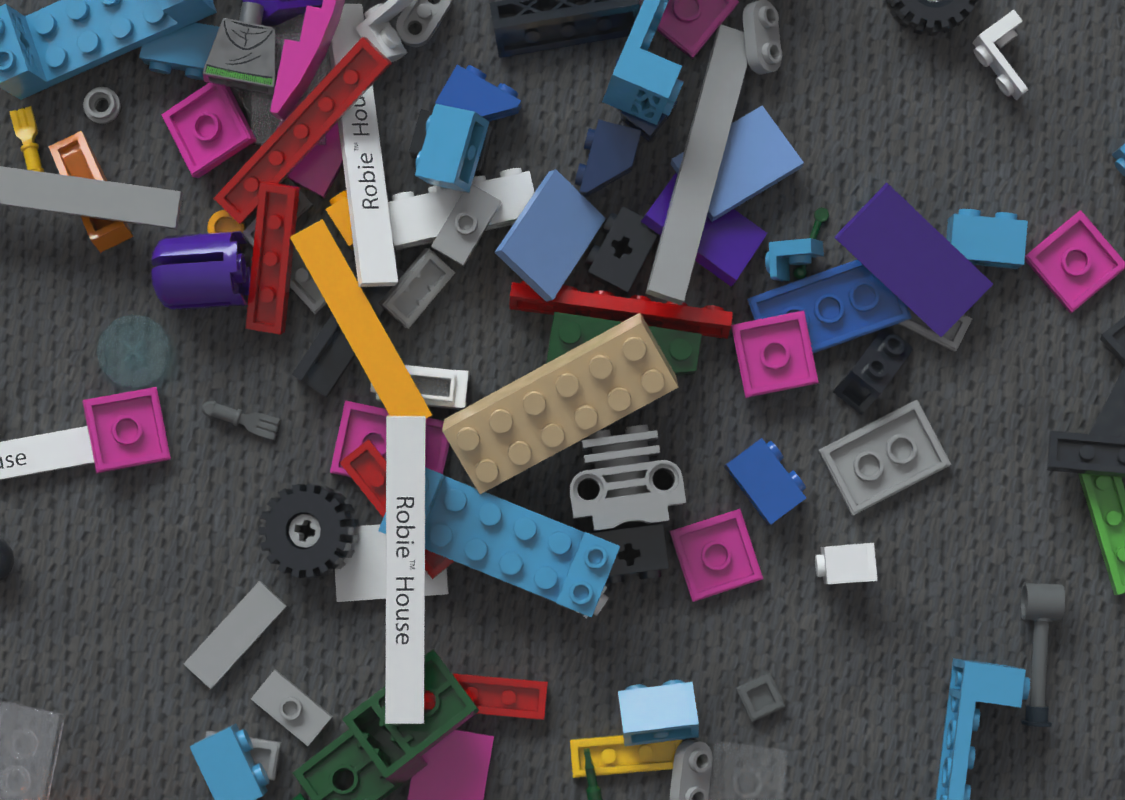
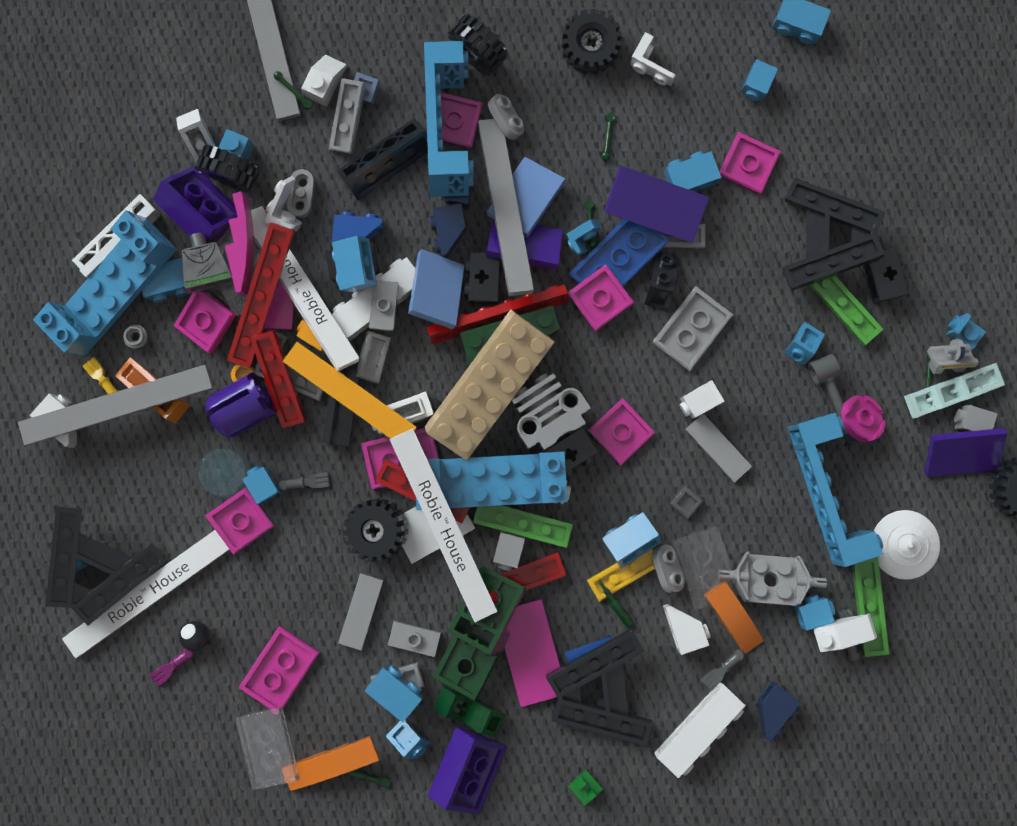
camera: 25 degrees left, 0 degrees up
(85, 661) = (279, 669): none -> dark pink tile
(180, 393) = (261, 484): none -> dark azure brick
(479, 647) = (508, 551): none -> light grey brick
(519, 620) = (524, 524): none -> bright green plate
(766, 480) = (630, 374): blue brick -> none
(841, 642) = (718, 448): none -> light grey tile
(909, 106) = (610, 119): none -> dark green hinge
(1032, 553) = (804, 344): none -> dark azure bracket
(1064, 696) = (863, 418): none -> dark pink tile

